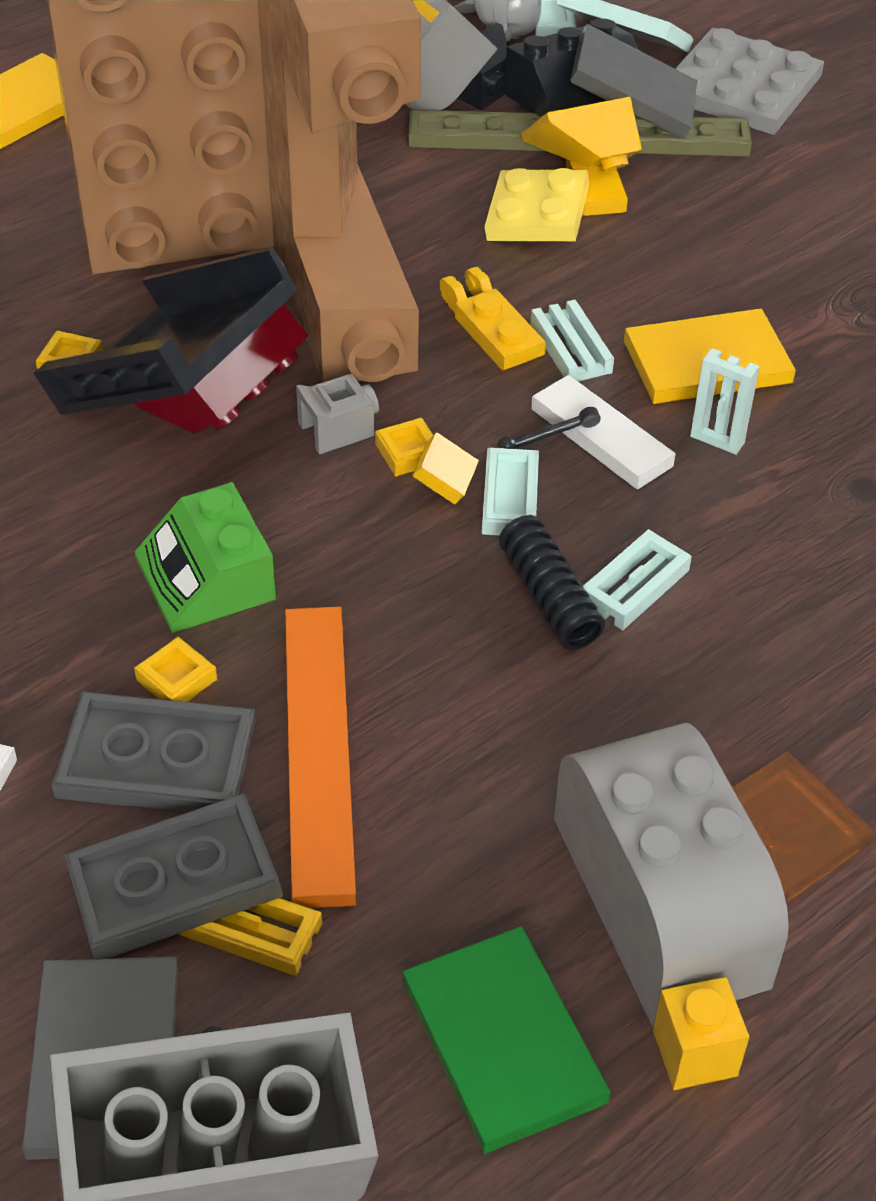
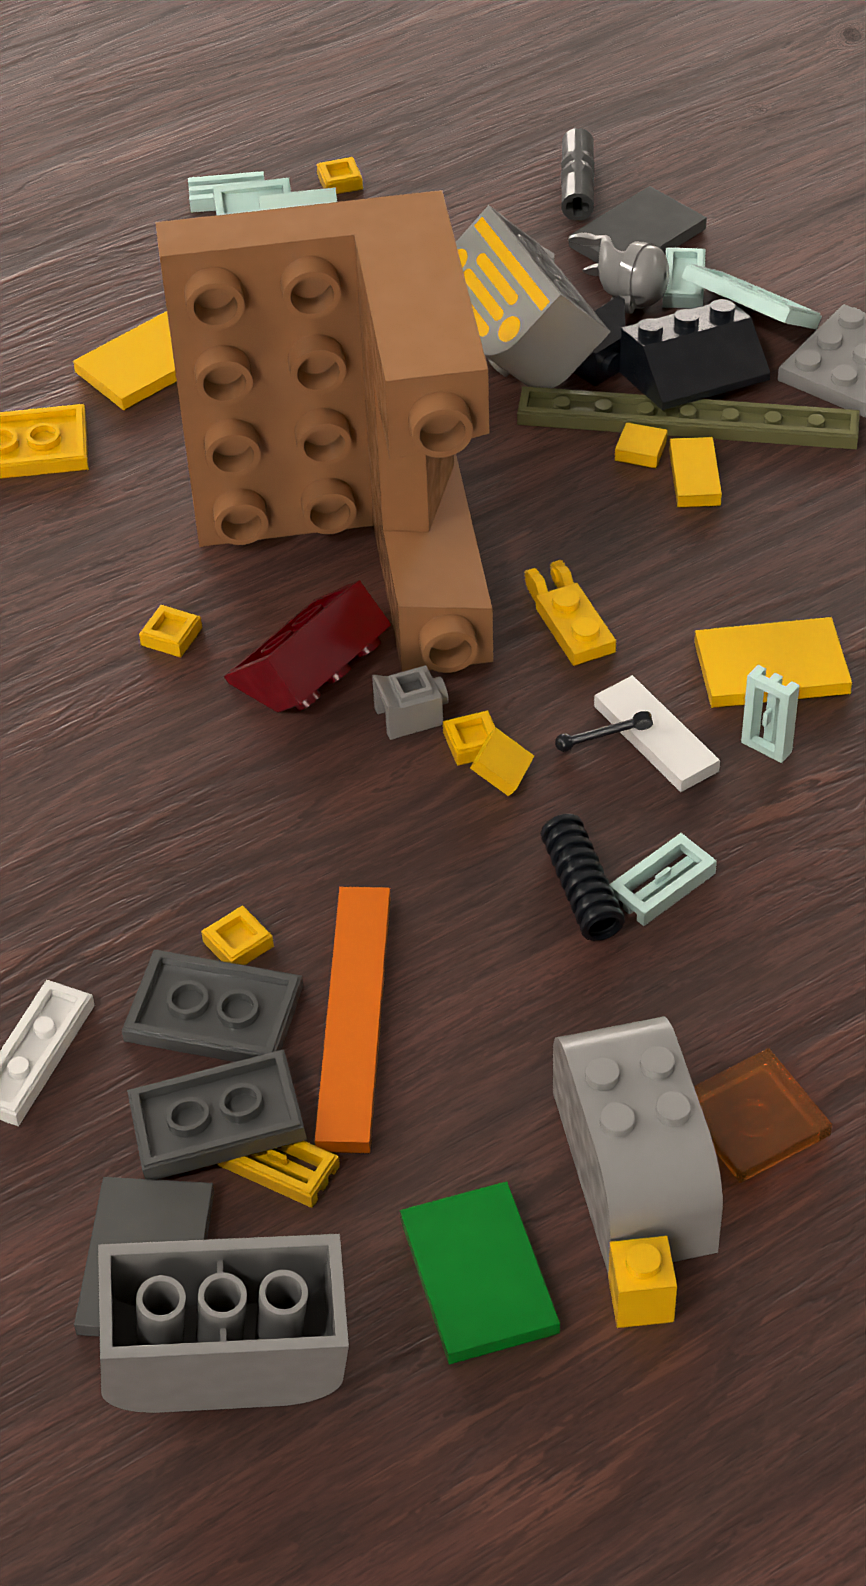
camera: 10 degrees right, 0 degrees up
(196, 325) = (270, 625): black panel -> none
(207, 559) = (274, 836): bright green slope -> none
(509, 487) = (560, 783): light aqua tile -> none
(534, 158) = (641, 445): none -> yellow tile
(537, 205) = (631, 496): light yellow plate -> none
(580, 339) = (635, 615): light aqua tile -> none
(589, 134) = (691, 426): yellow slope -> none
(621, 71) = (745, 369): dark grey tile -> none

